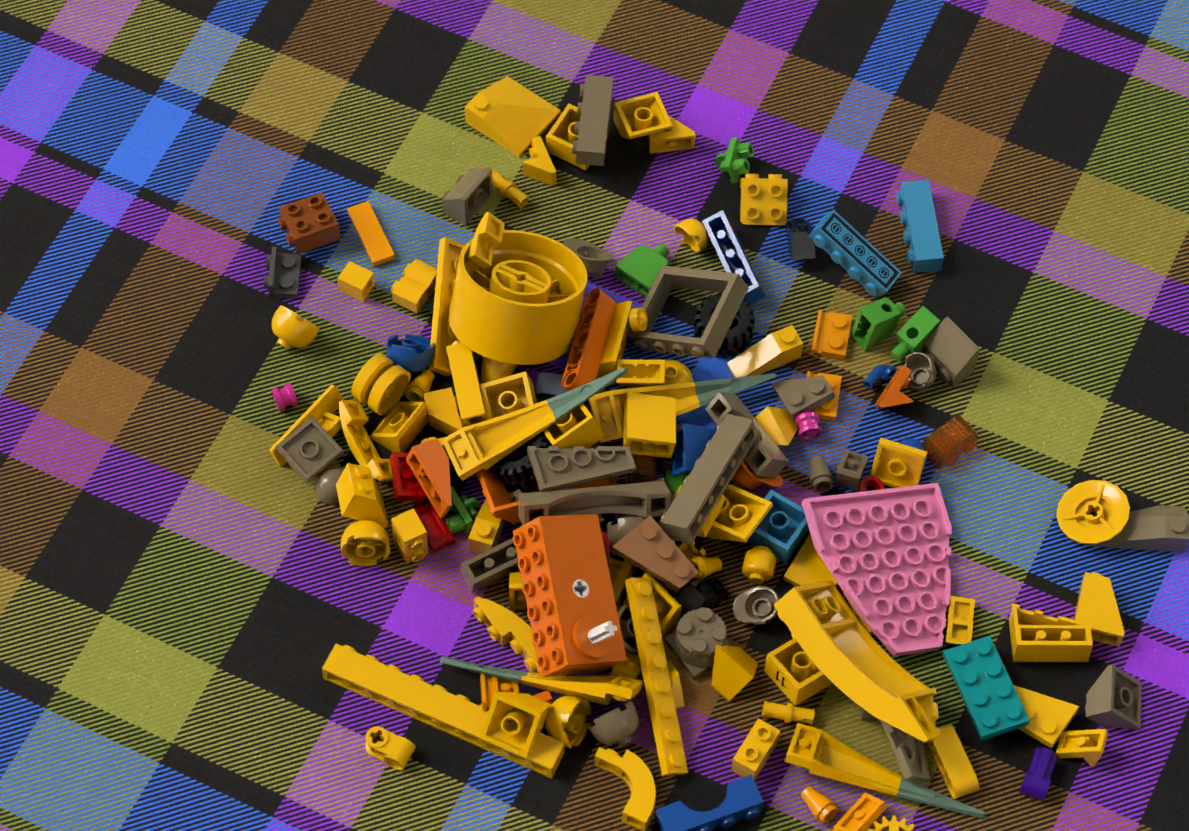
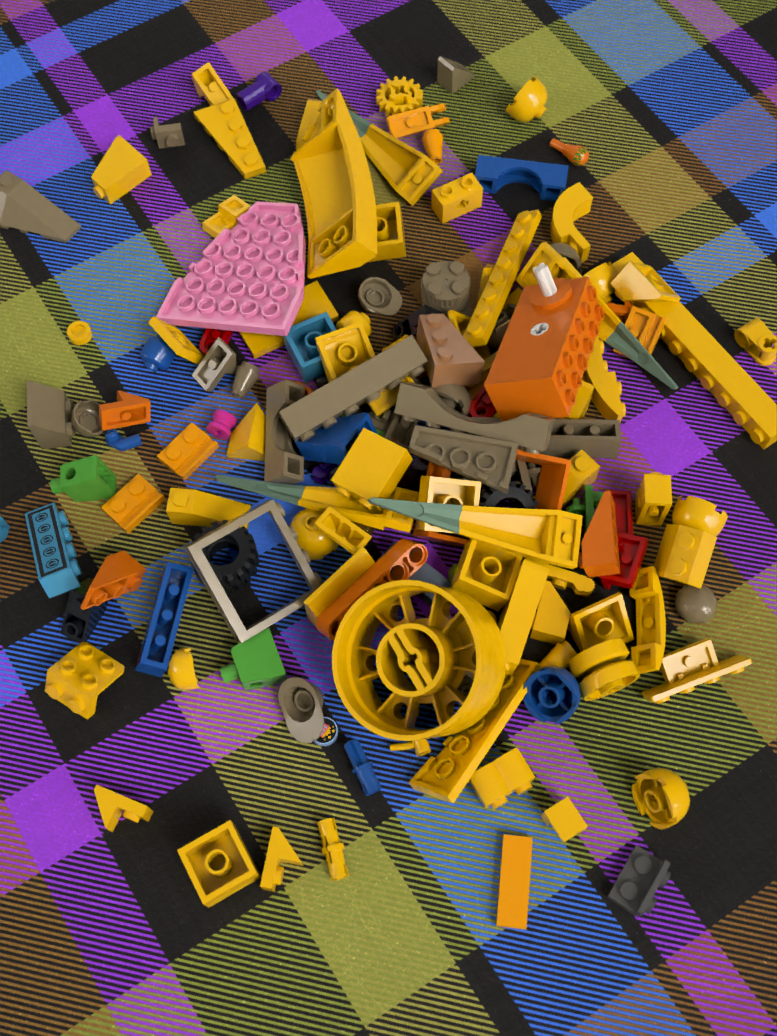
camera: 145 degrees left, 5 degrees up
(284, 397) = (706, 722): dark pink wheel -> none
(309, 223) = (585, 925): dark orange brick -> none
(309, 450) = (712, 637): dark tan tile -> none
(468, 195) = (384, 859): dark tan slope -> none
(488, 234) = (416, 727): yellow slope -> none
(510, 114) = (266, 953): yellow slope -> none
(594, 120) = (192, 852): dark tan brick -> none
(638, 319) = (307, 586): yellow tile -> none
(641, 116) = (136, 838): yellow slope -> none
(731, 670) = (426, 254): yellow slope -> none
(734, 159) = (67, 744): bright green hips -> none
(788, 713) = (413, 217): yellow pin -> none
(794, 261) = (116, 577): none -> orange slope
(803, 394) = (204, 450): dark tan wing -> none
(914, 333) = (62, 446): bright green torso -> none
(950, 442) = (115, 348): clear orange brick -> none
(986, 688) = (250, 153): teal plate -> none
(997, 446) = (79, 332): none -> yellow tile
(1048, 638) = (175, 164): yellow wedge -> none
(1081, 673) = (167, 135): none -> dark tan bracket
(1094, 496) = (46, 220): yellow piece -> none
(1115, 700) = (167, 106): dark tan slope -> none

